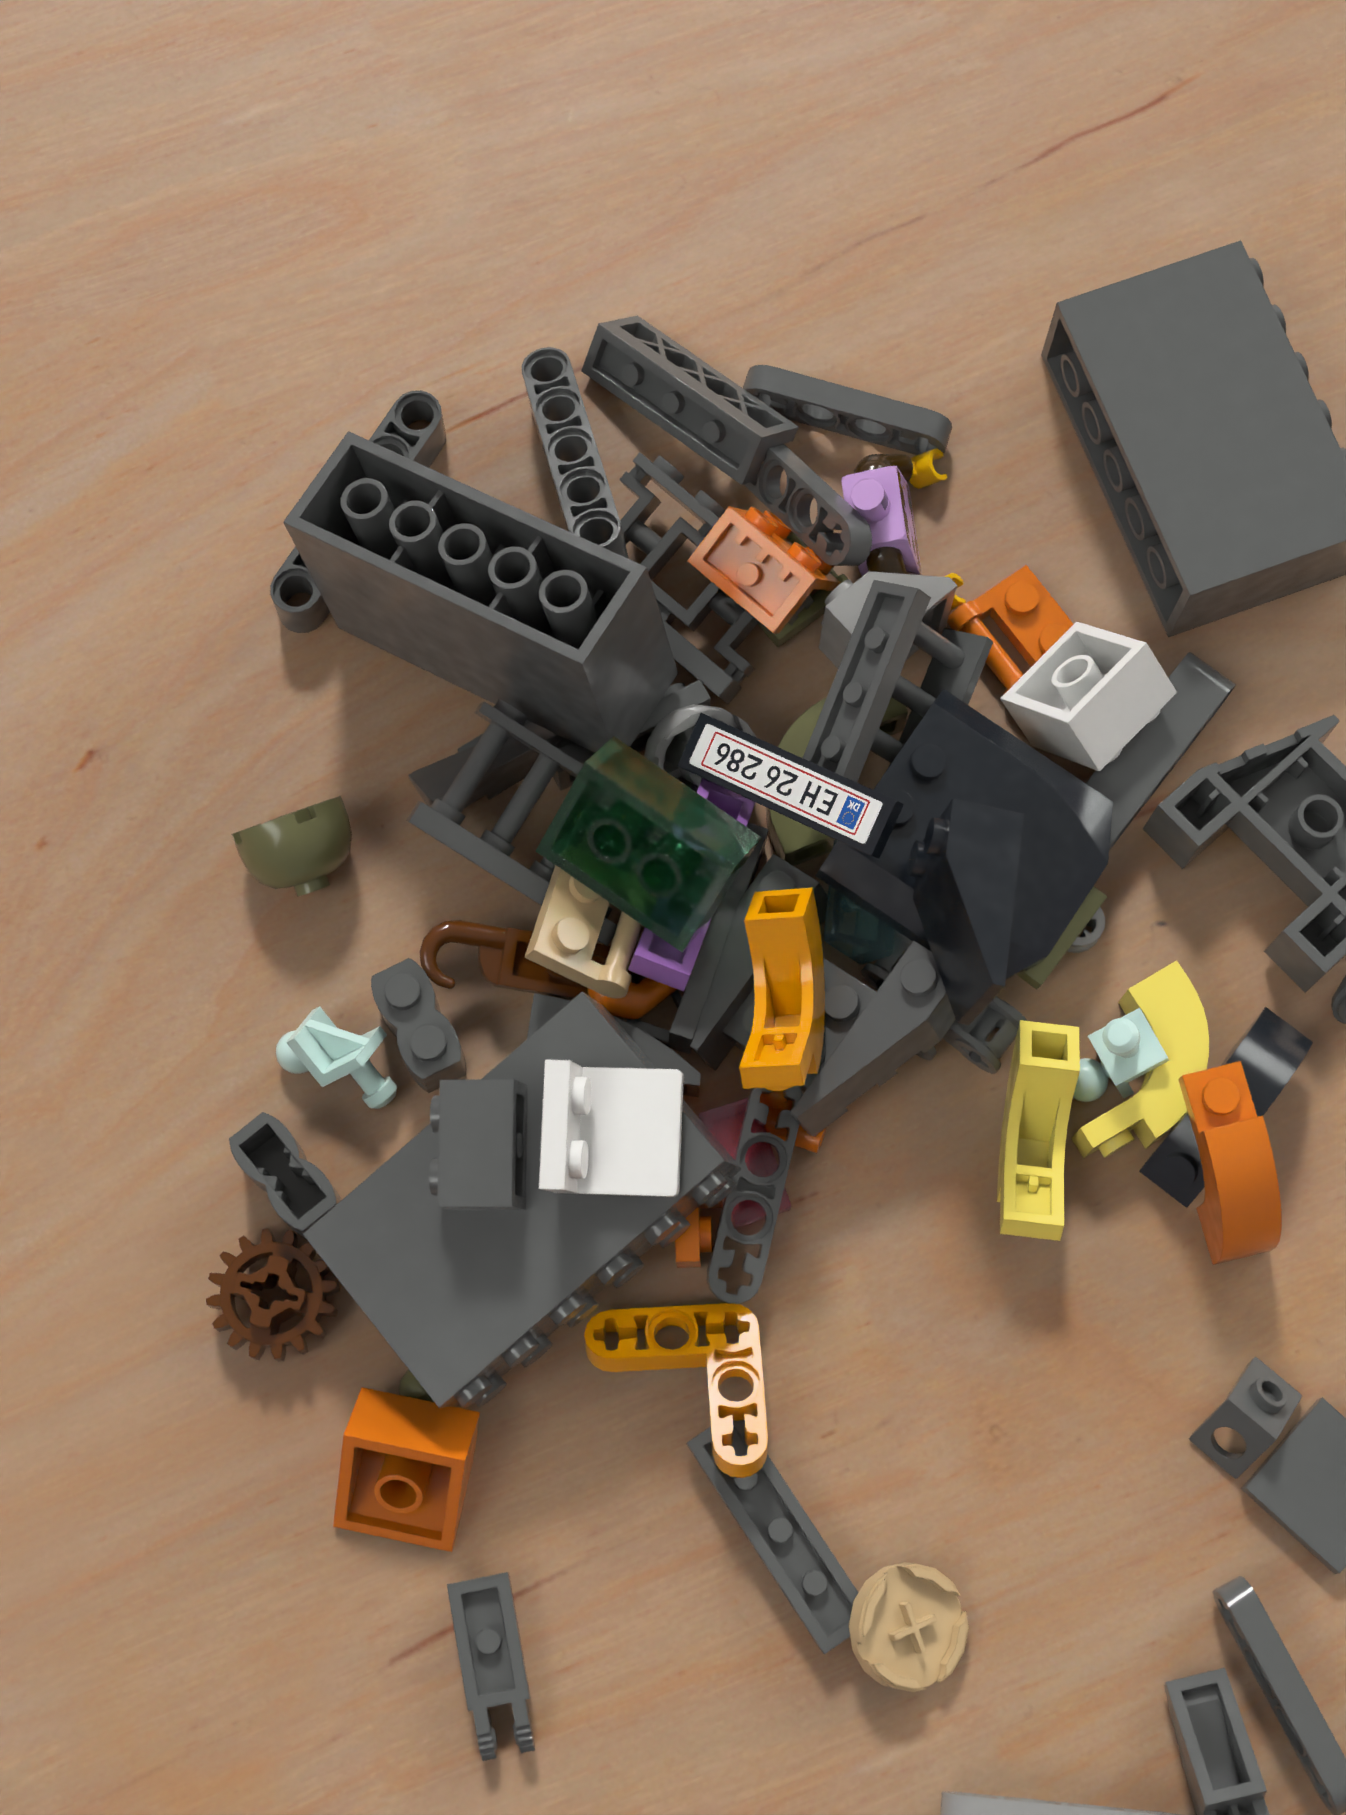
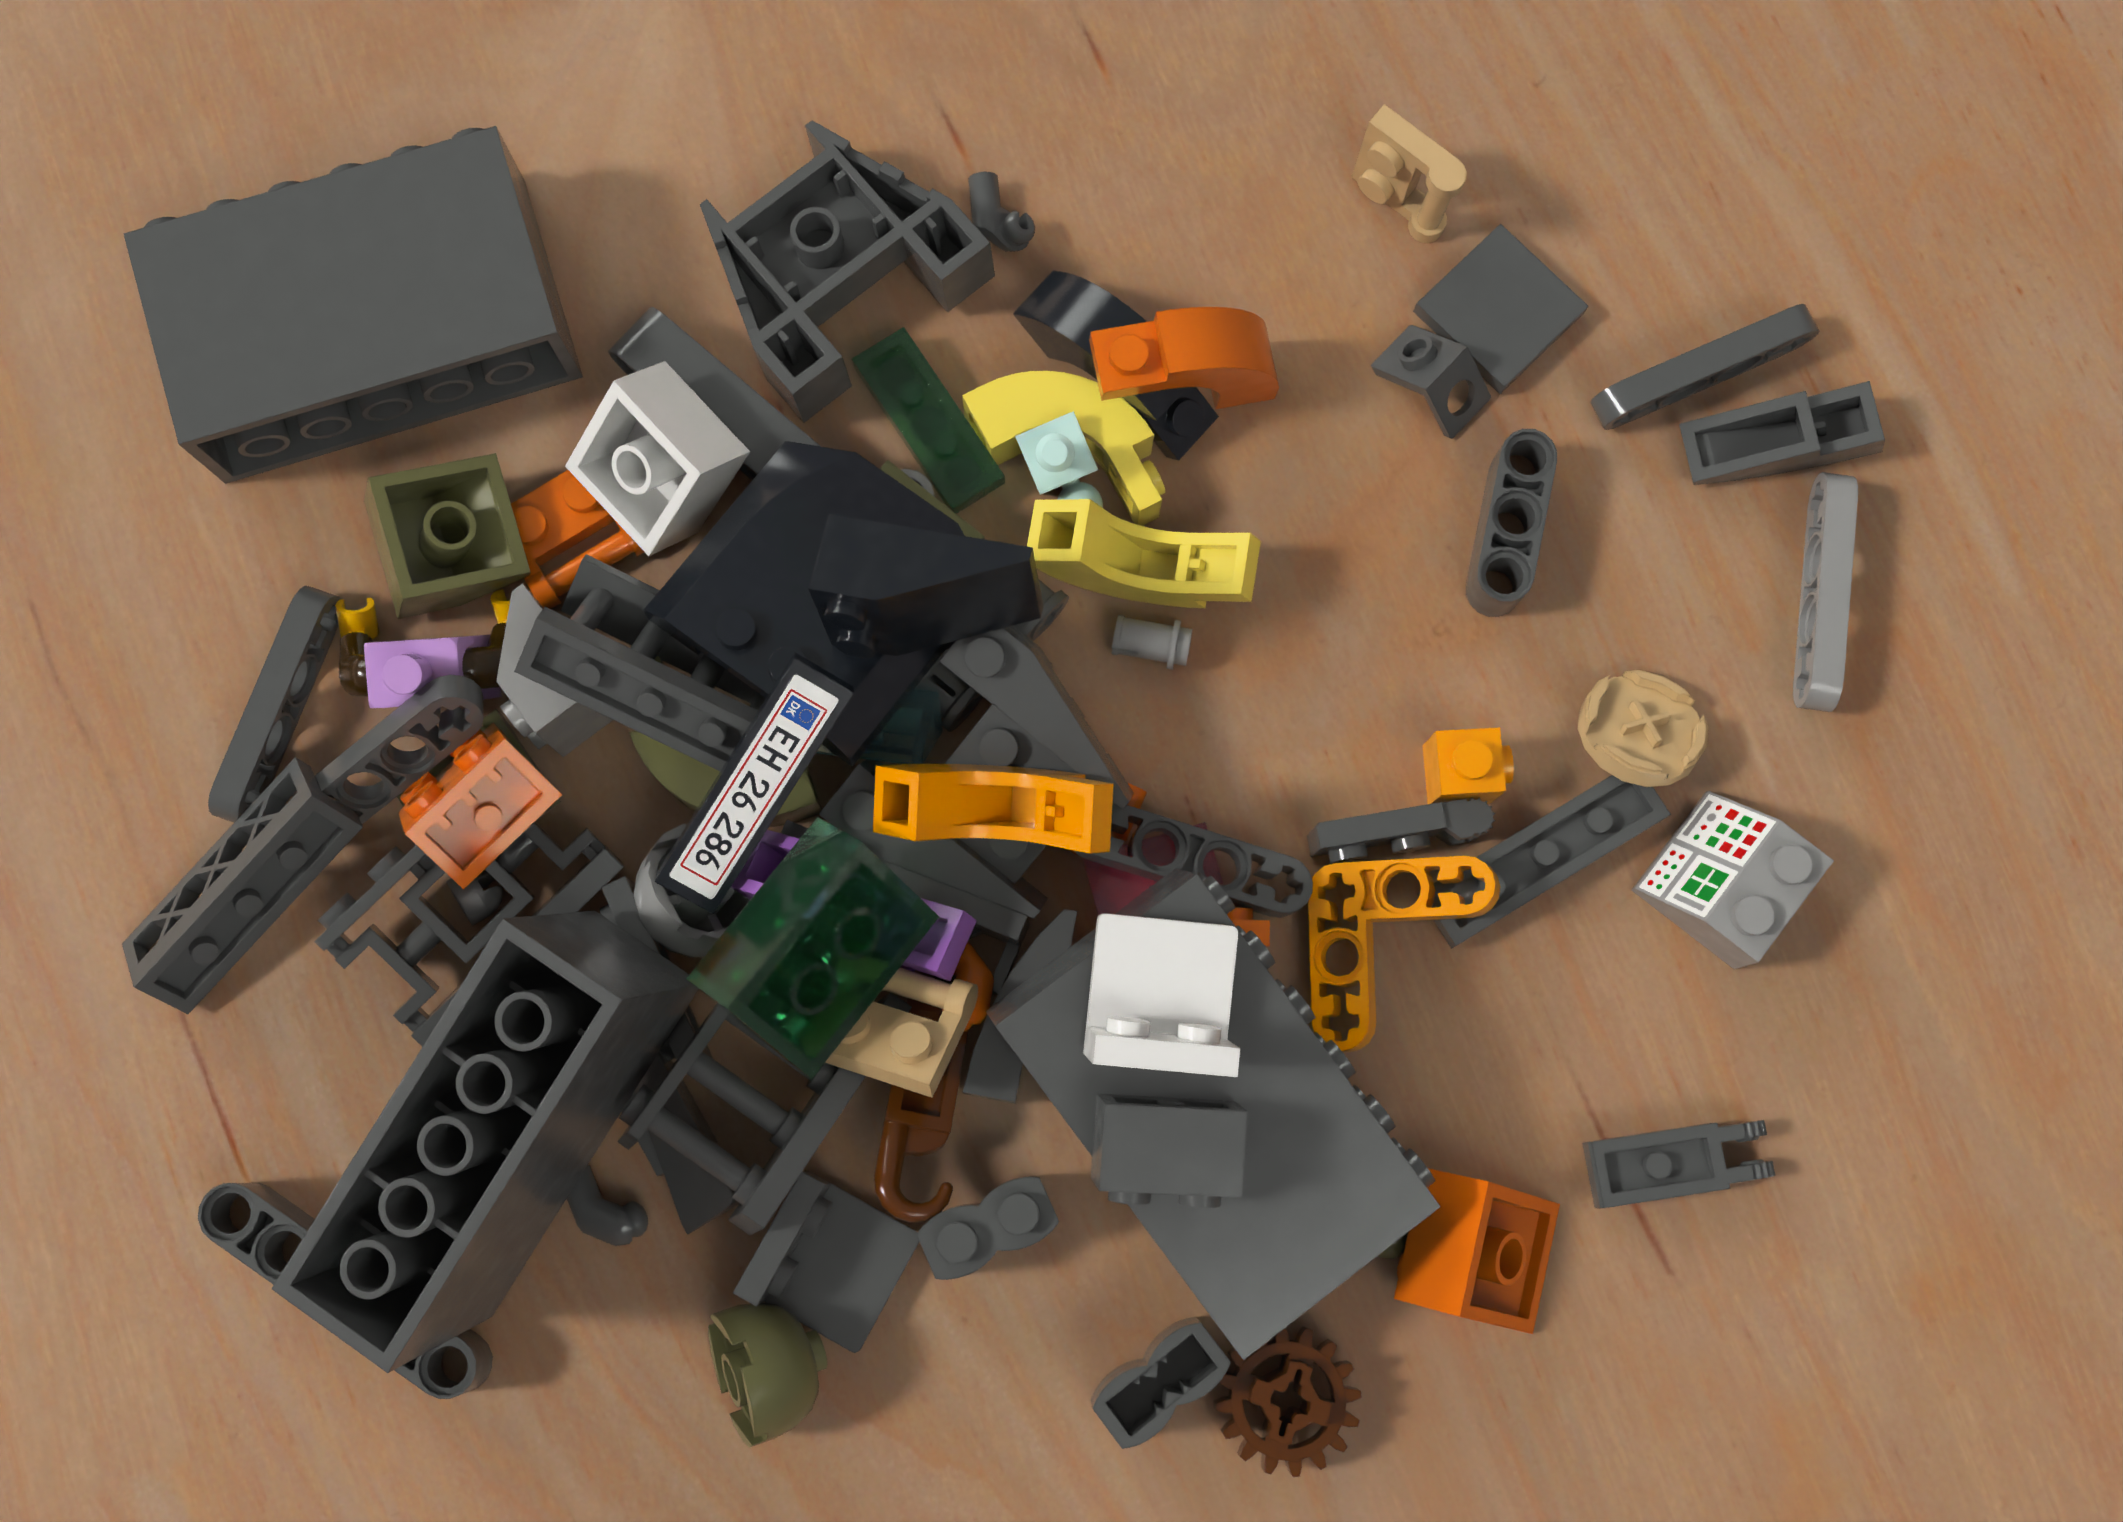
camera: 90 degrees left, 5 degrees up
(334, 1053) = (1019, 1325): light aqua piece -> none
(388, 890) = (829, 1261): none -> dark grey bracket
(421, 707) = (602, 1217): none -> dark grey arm
(571, 449) = (231, 1042): dark grey beam -> none
(686, 584) = (474, 900): none -> light grey hinge
(767, 1716) = (1732, 878): none -> light grey slope
(795, 1393) = (1402, 828): none -> dark grey hinge
(858, 1450) = (1467, 765): none -> light orange brick
(960, 1152) = (1152, 641): none -> light grey pin
(1006, 529) = (445, 534): none -> olive slope
(1134, 1490) = (1528, 500): none -> dark grey beam
(1154, 937) = (928, 421): none -> clear green plate

